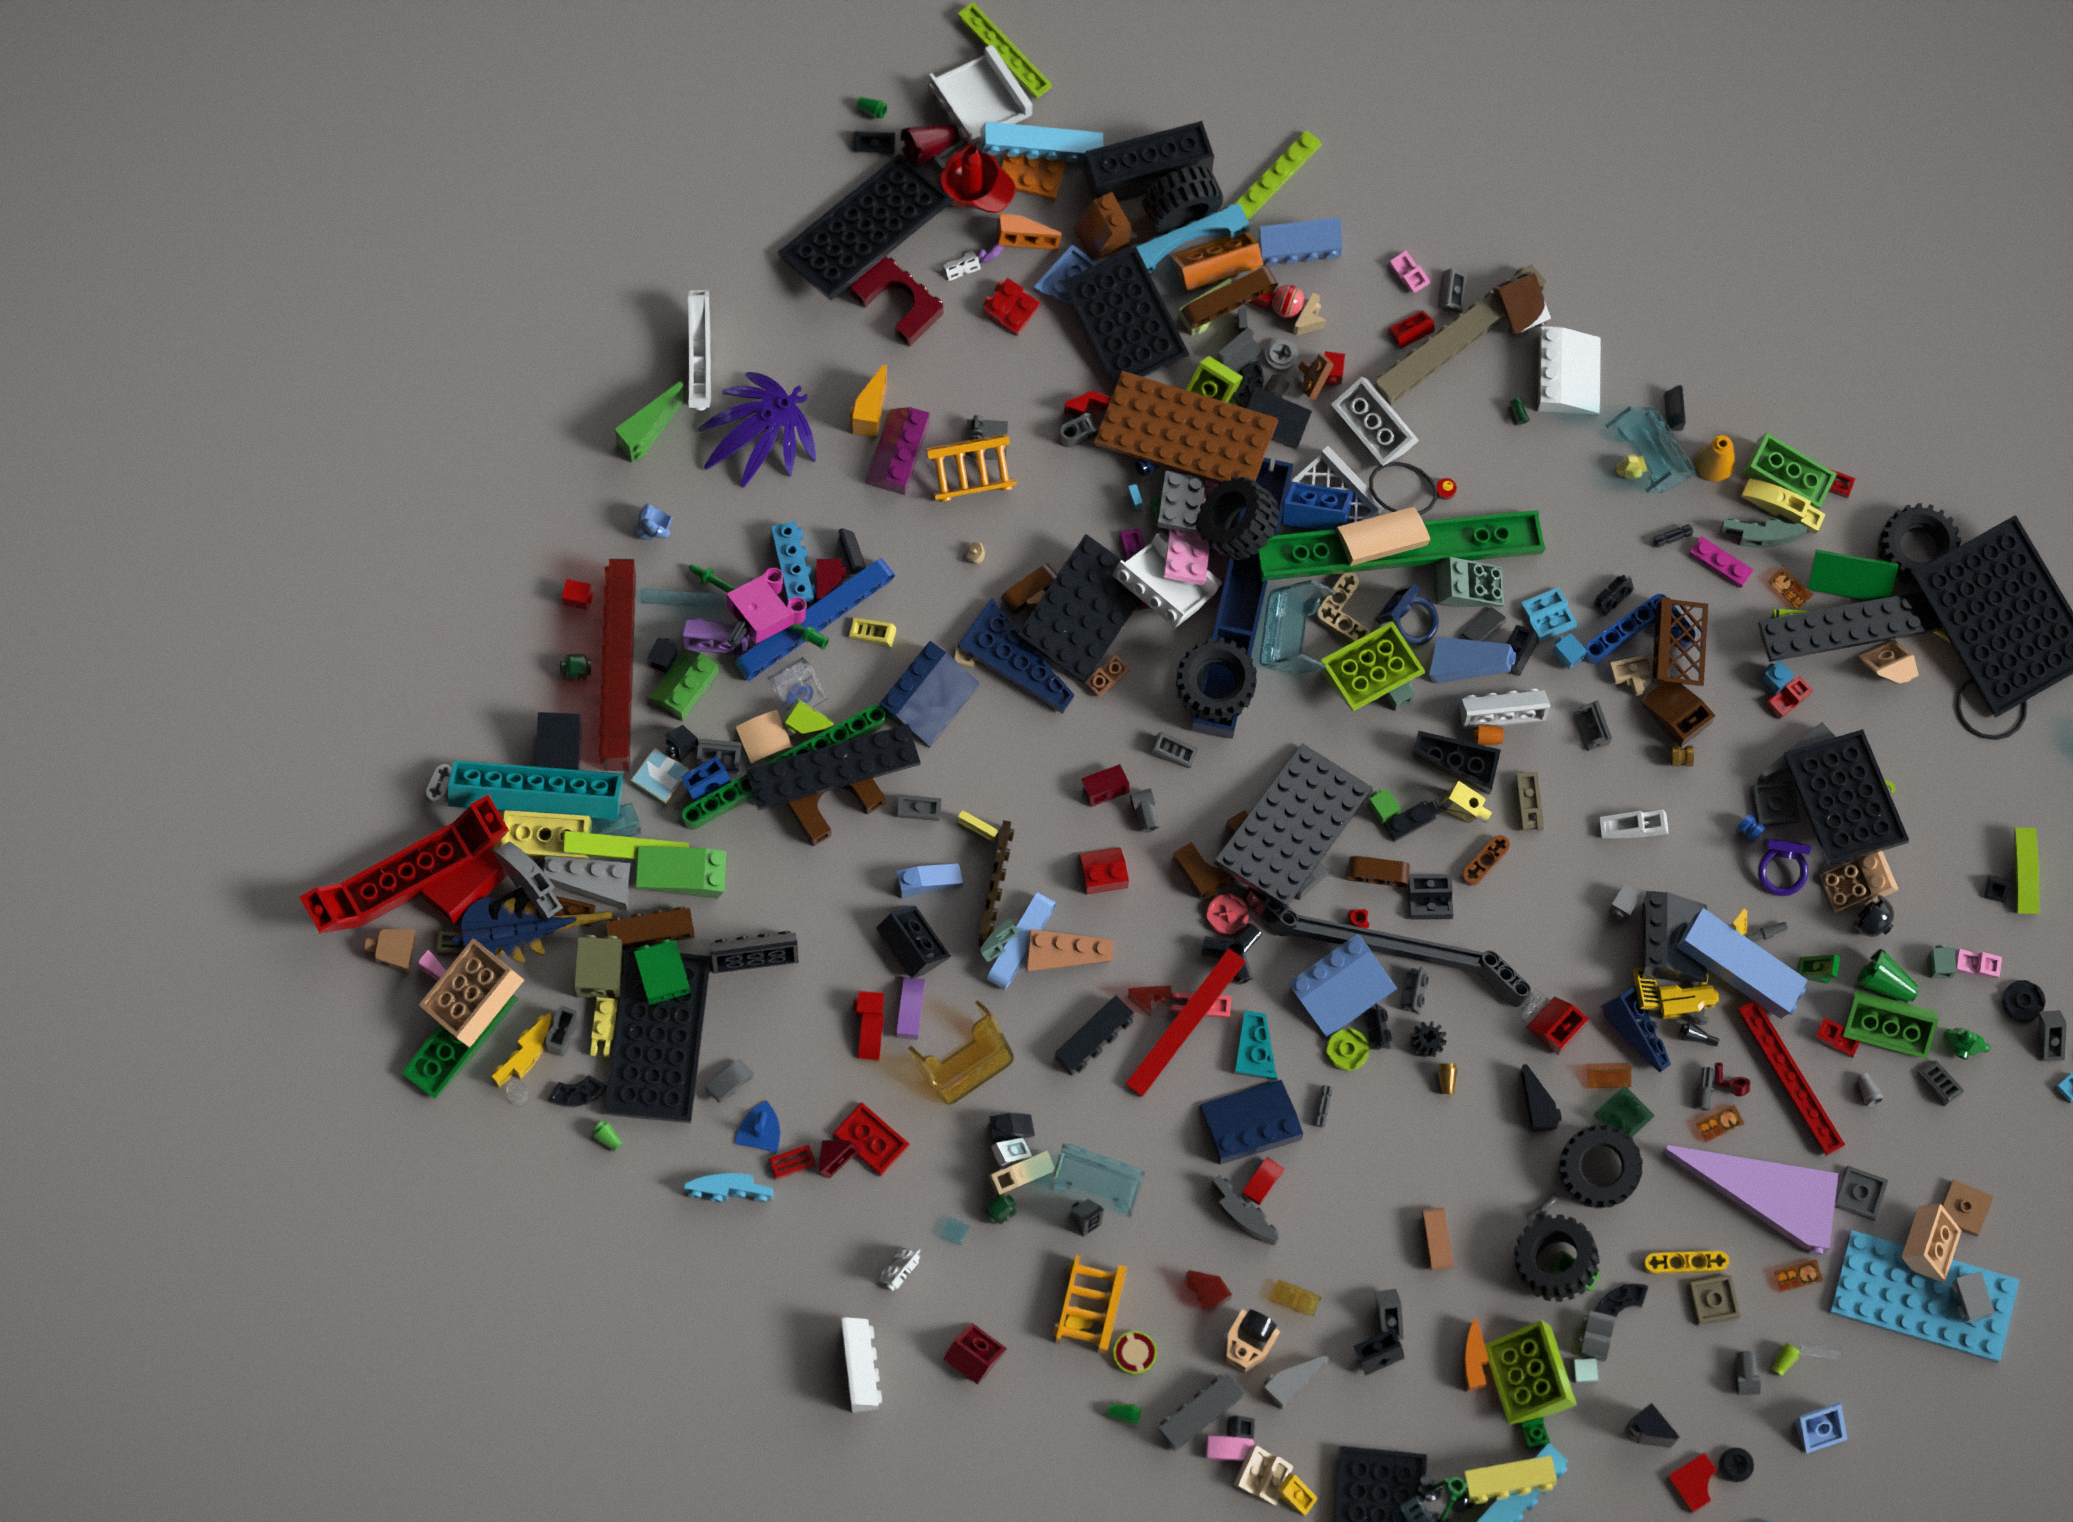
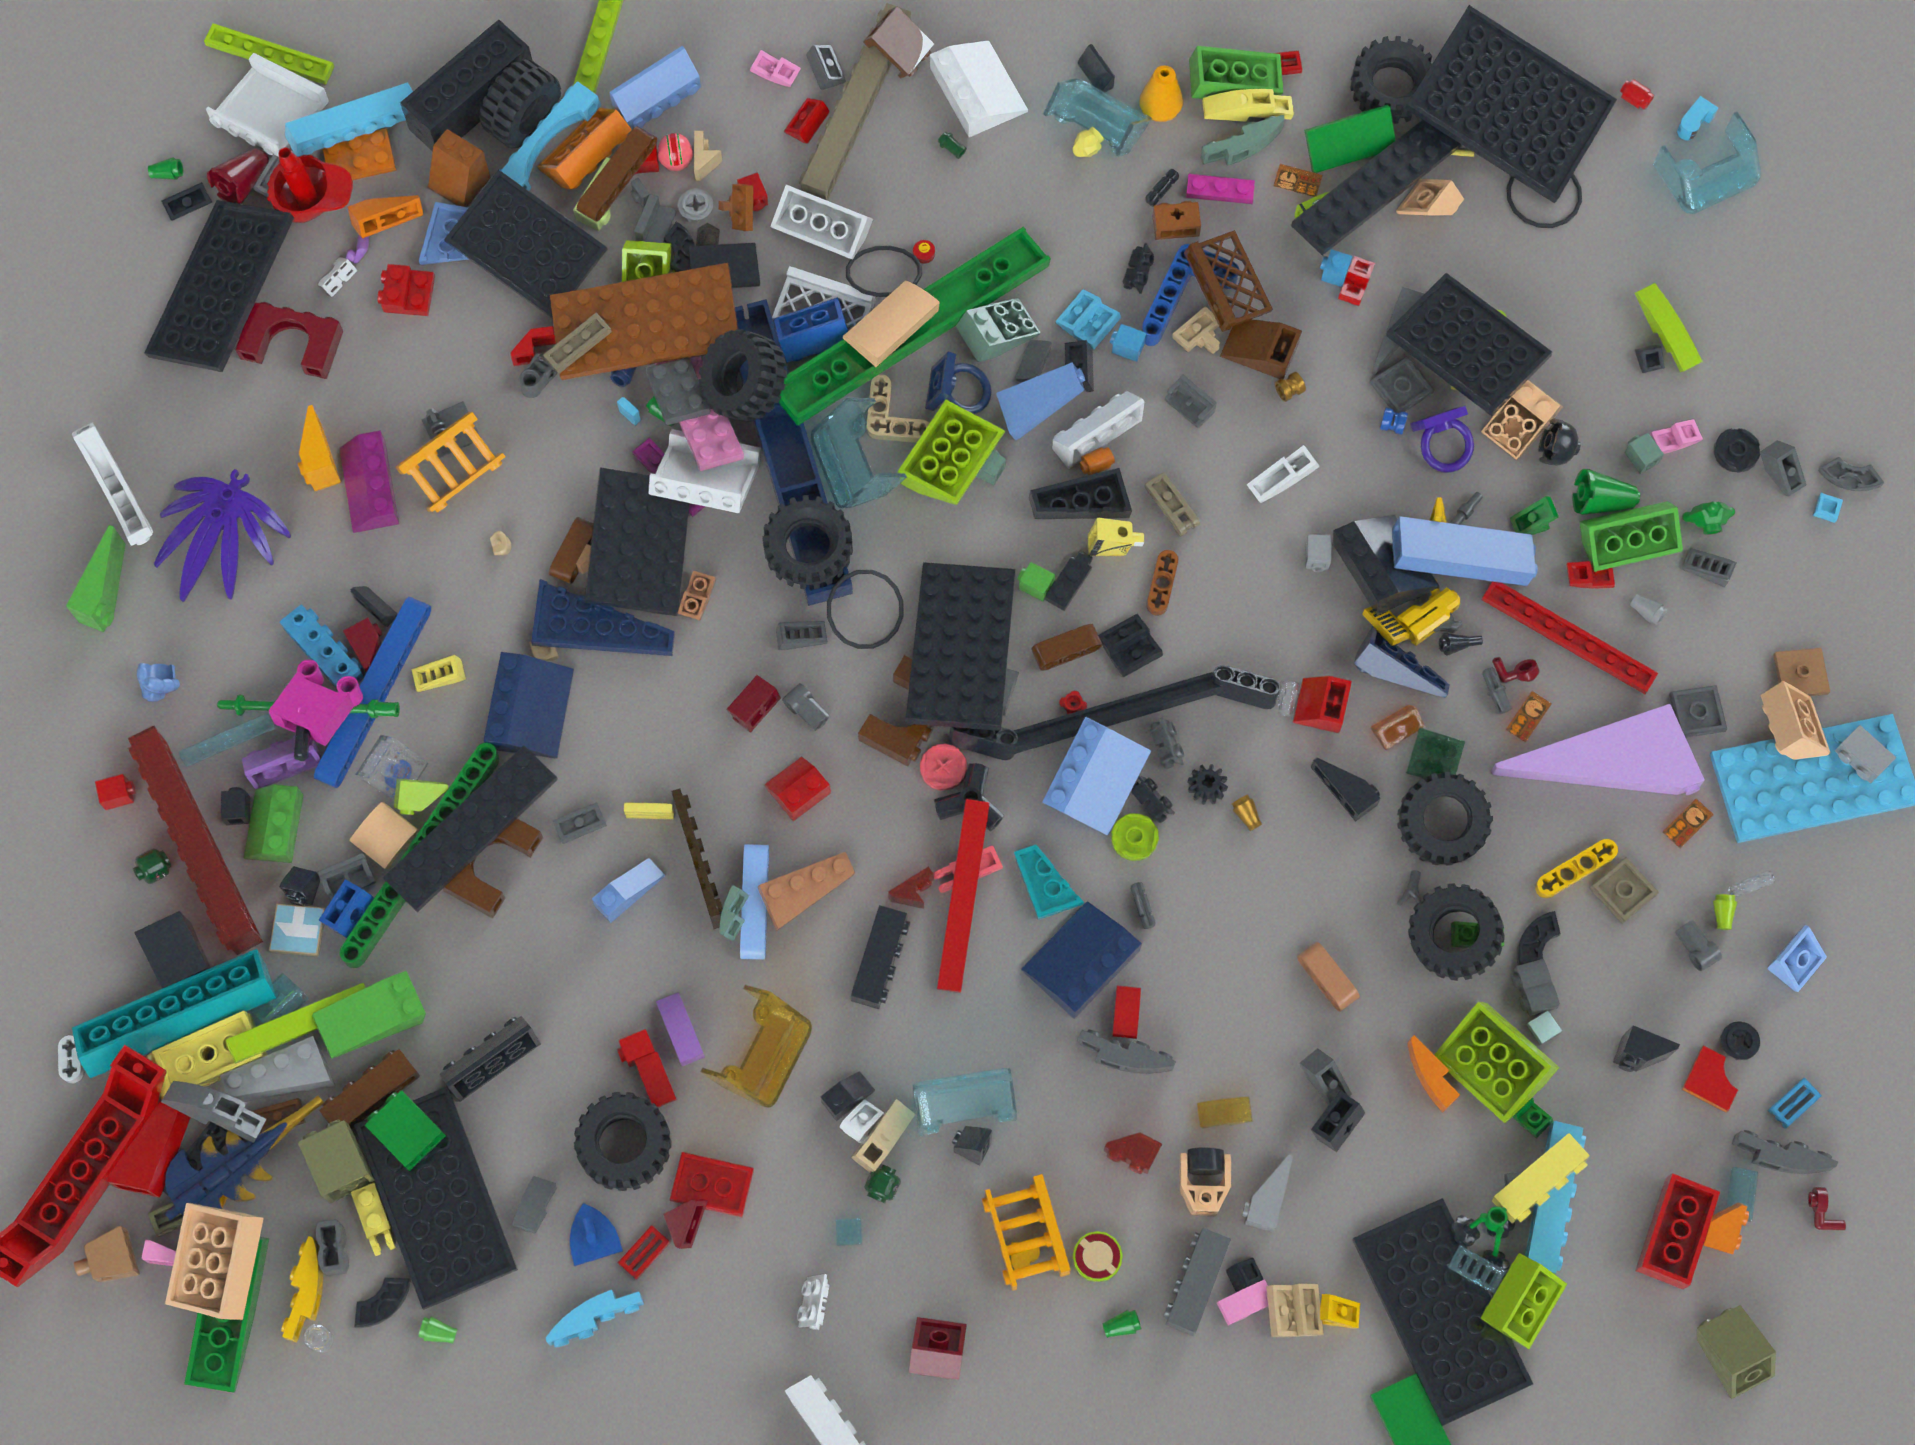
camera: 25 degrees left, 0 degrees up
(821, 1096) = (605, 1113): none -> black tyre
(912, 941) = (646, 960): black slope -> none
(1122, 422) = (577, 343): none -> dark tan plate
(1235, 723) = (898, 623): none -> black piece
(1658, 571) = (1187, 223): none -> dark orange brick

